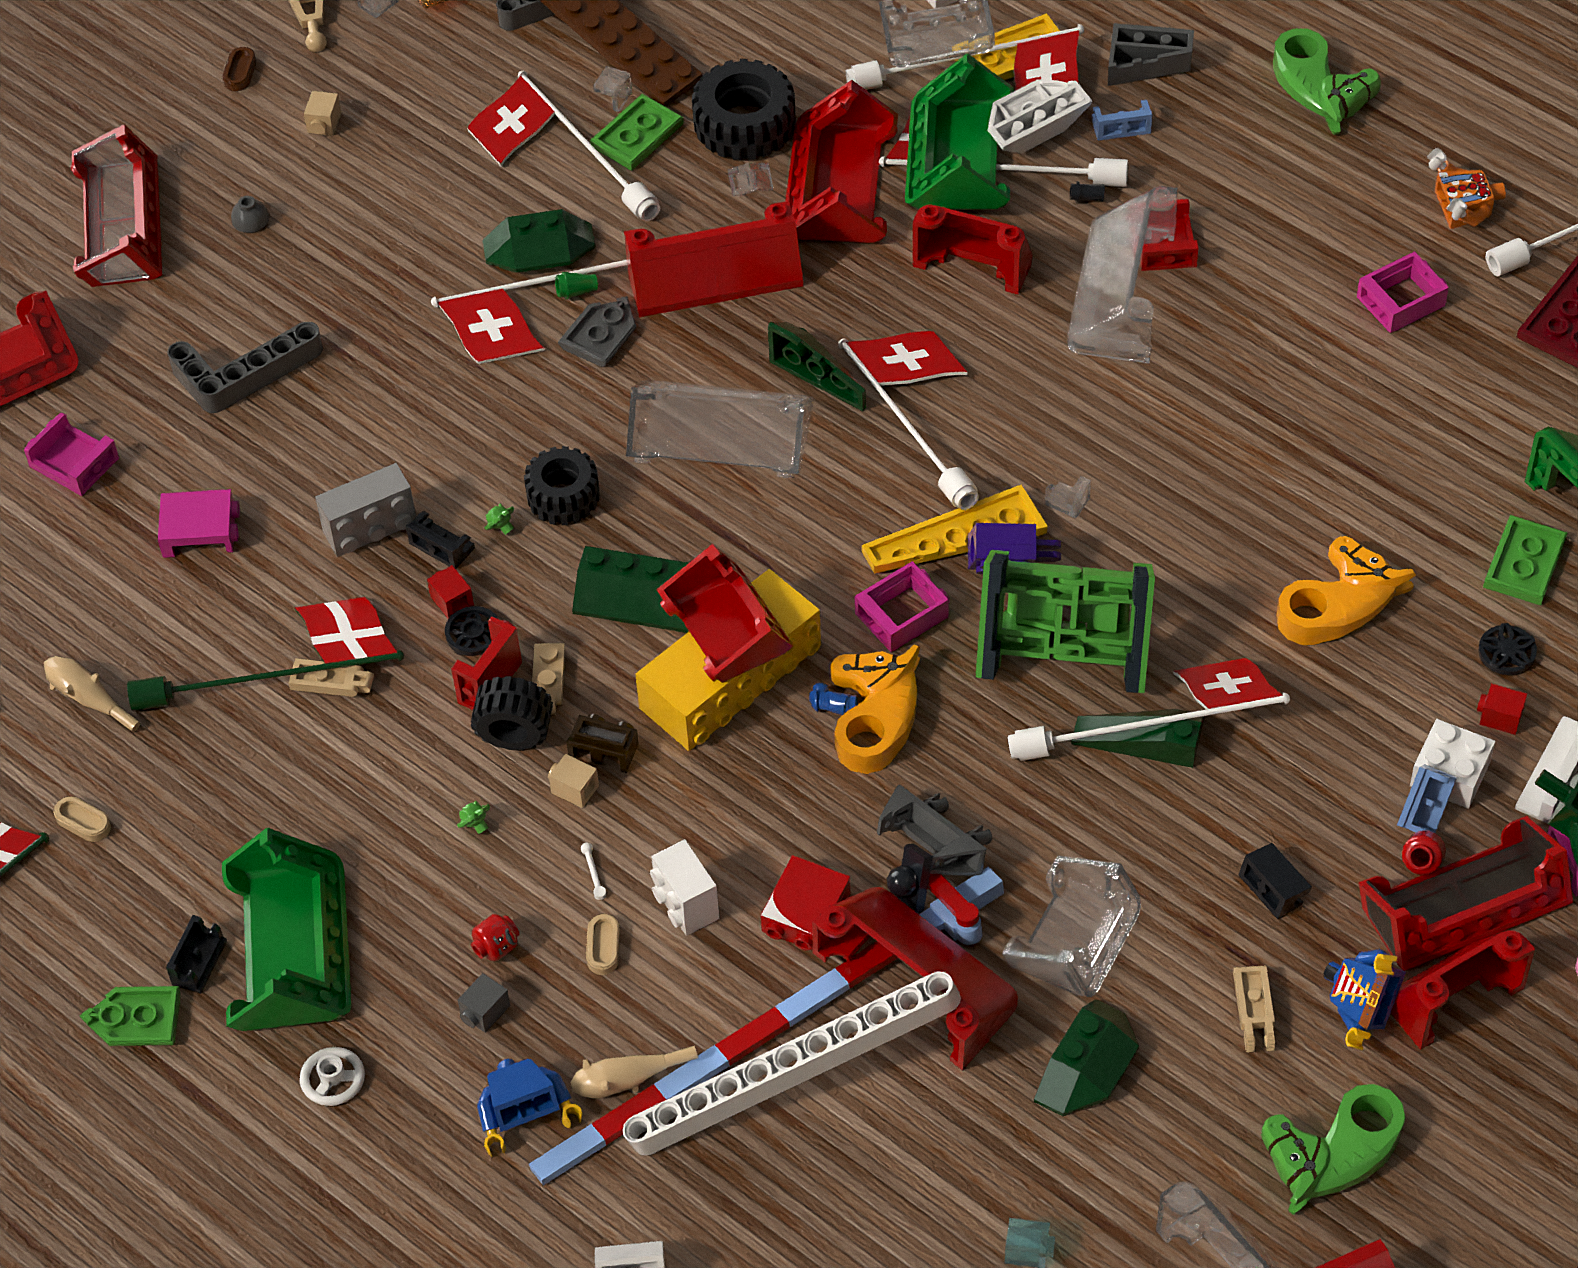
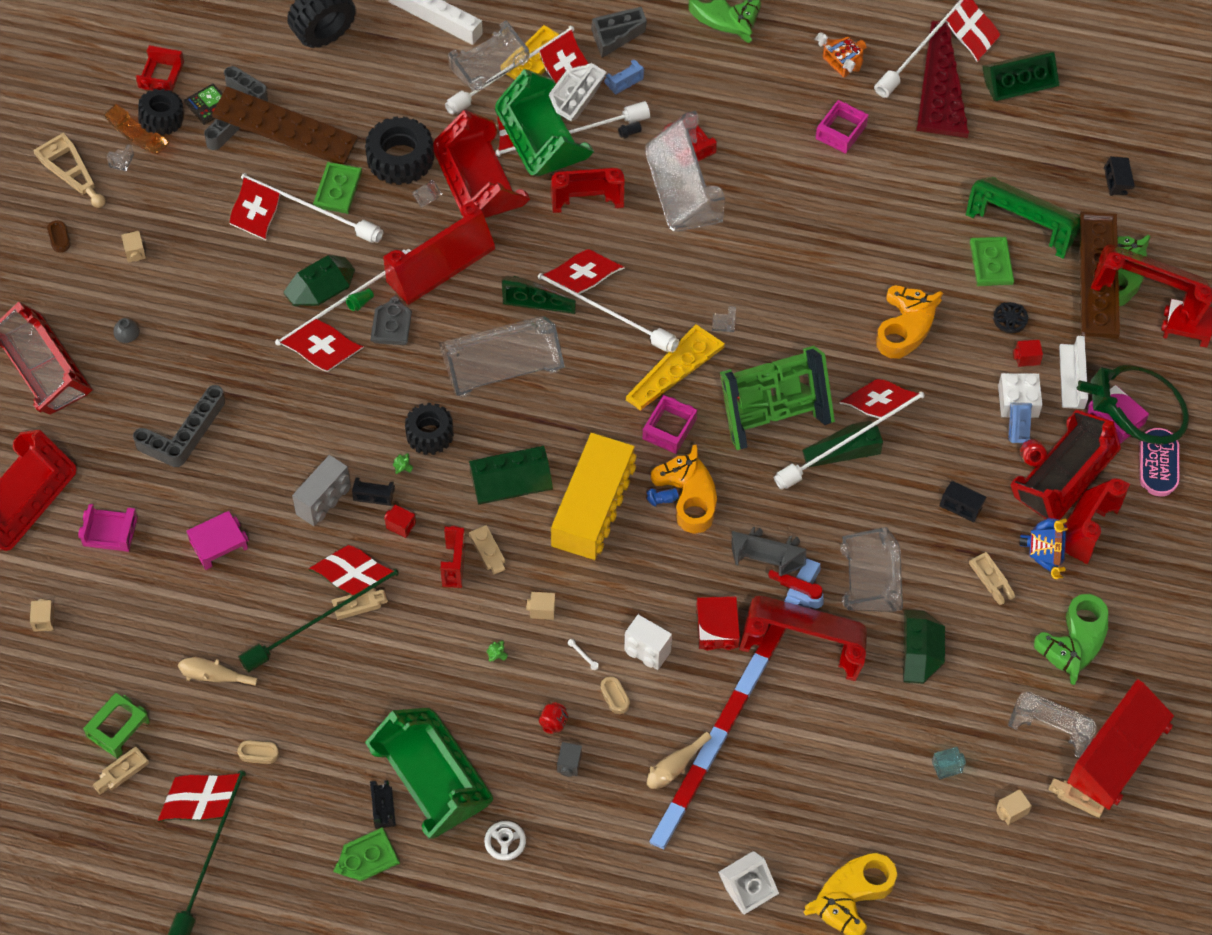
camera: 30 degrees left, 5 degrees up
(471, 631) = (426, 539): black wheel -> none
(511, 713) = (487, 580): black tyre -> none
(519, 1095) = (624, 804): blue torso -> none
(603, 739) = (545, 573): dark brown window -> none
(614, 84) = (308, 162): clear panel -> none
(724, 615) = (586, 473): red windscreen -> none
(808, 1063) = (771, 729): white beam -> none
(911, 879) = (772, 583): black tile -> none
(1015, 538) = (708, 367): dark purple brick -> none

